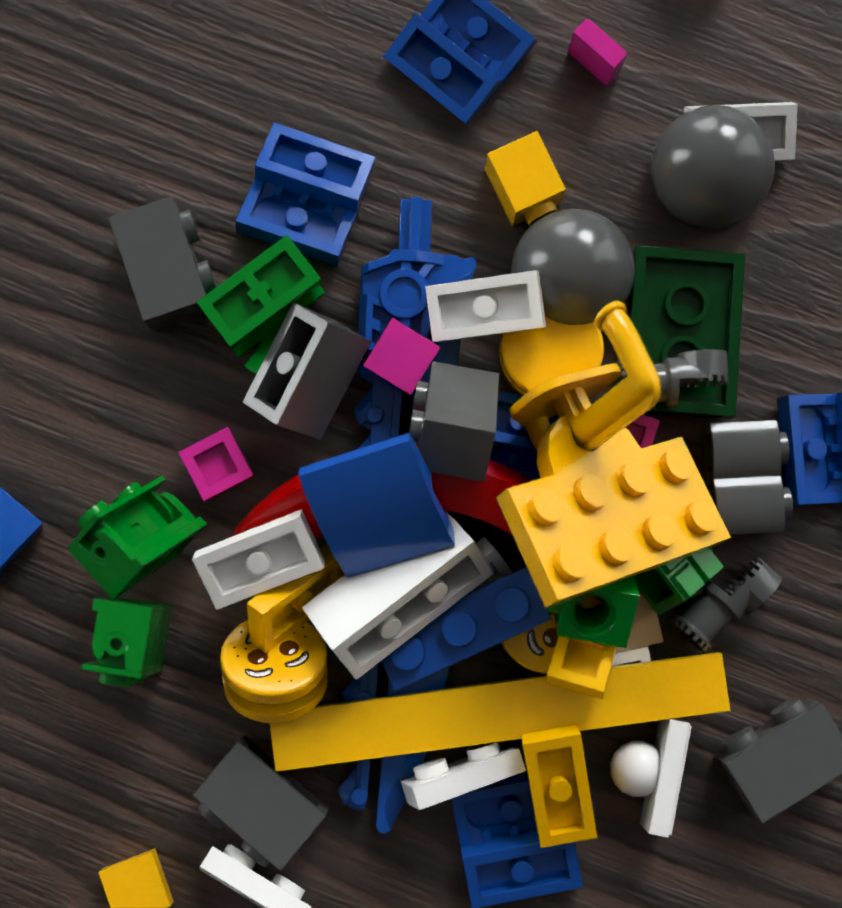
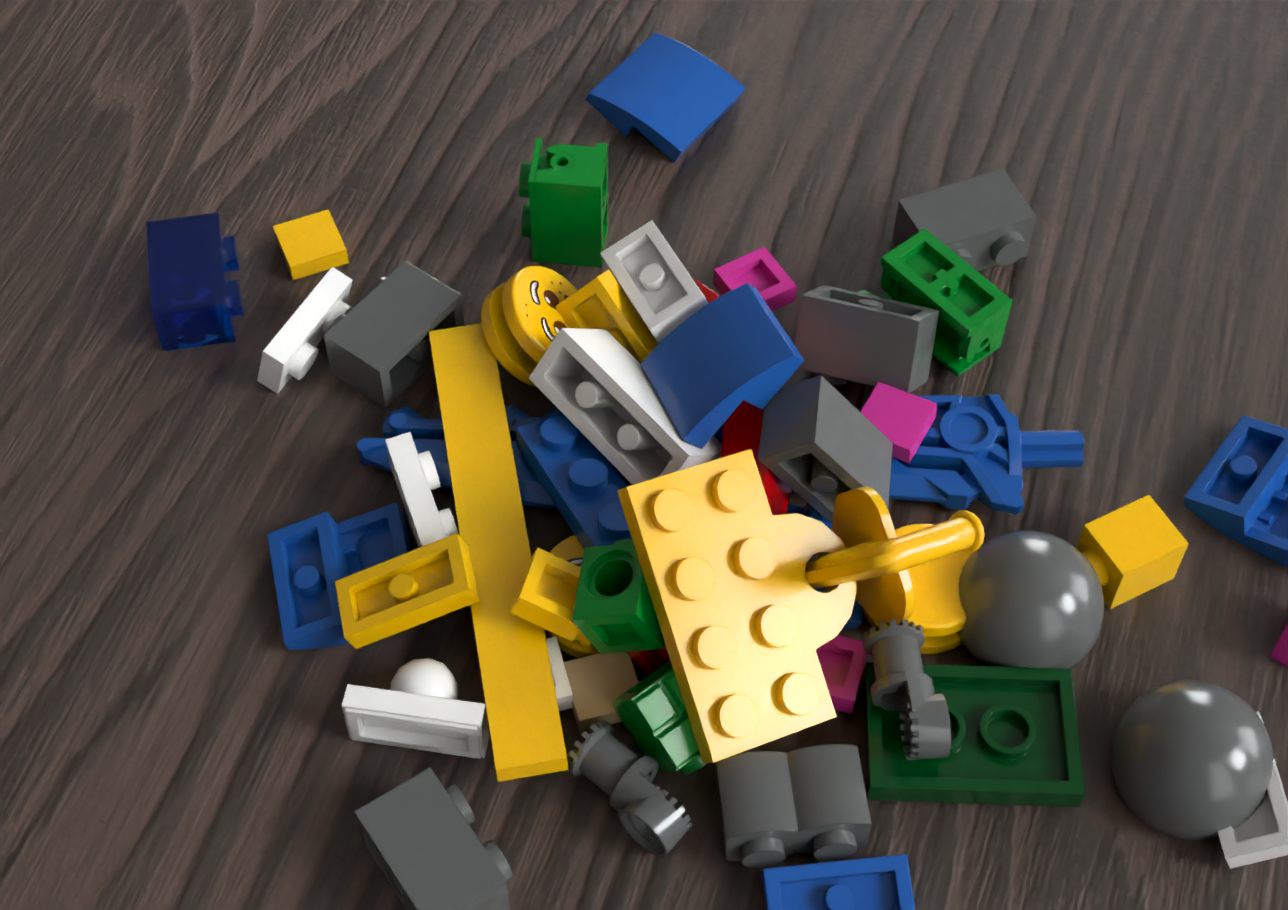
camera: 90 degrees right, 30 degrees down
(133, 536) = (672, 185): green hinge -> none
(305, 192) = (1067, 355): blue slope -> none
(485, 306) = (962, 478): white plate -> none

